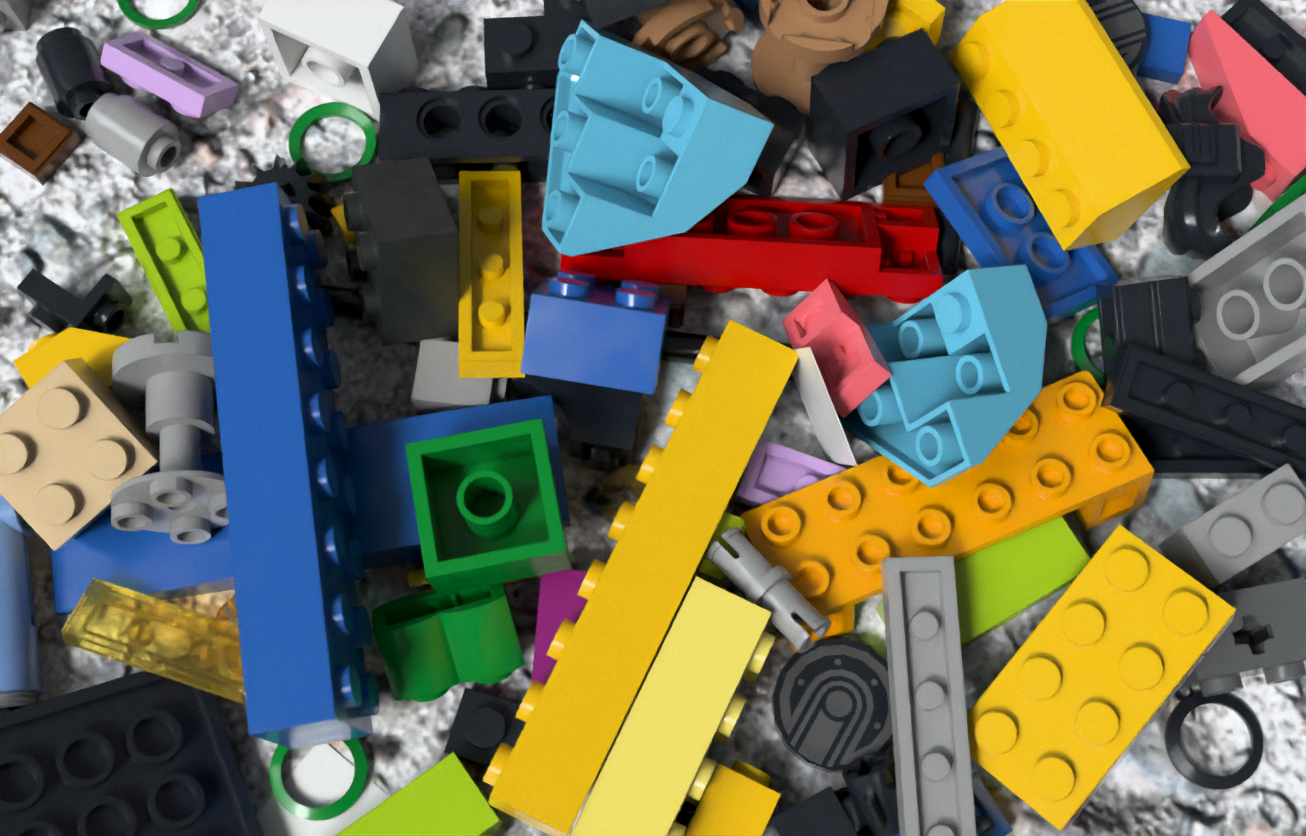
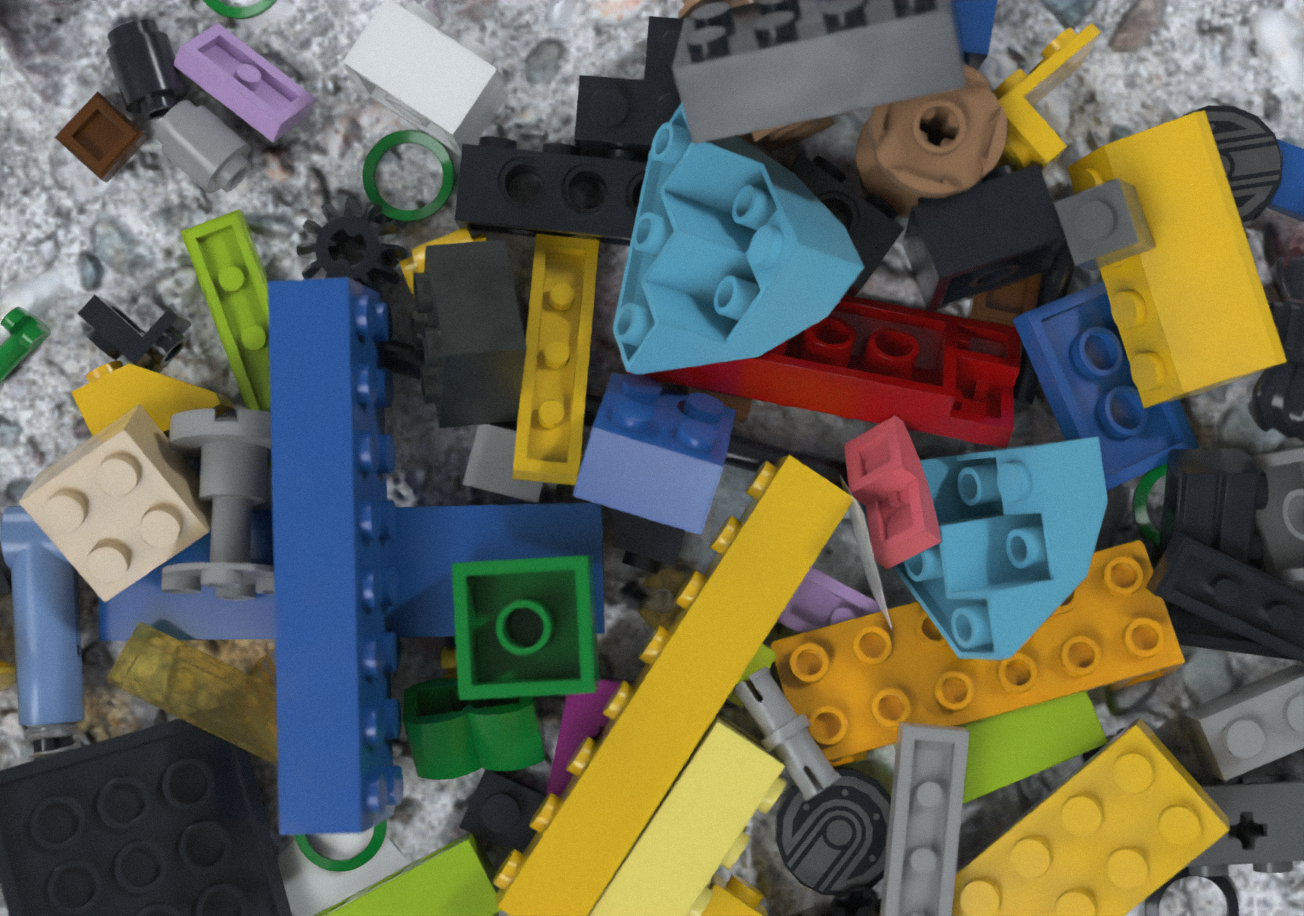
camera: 10 degrees right, 15 degrees up
(994, 72) = (1104, 224): none -> dark grey brick

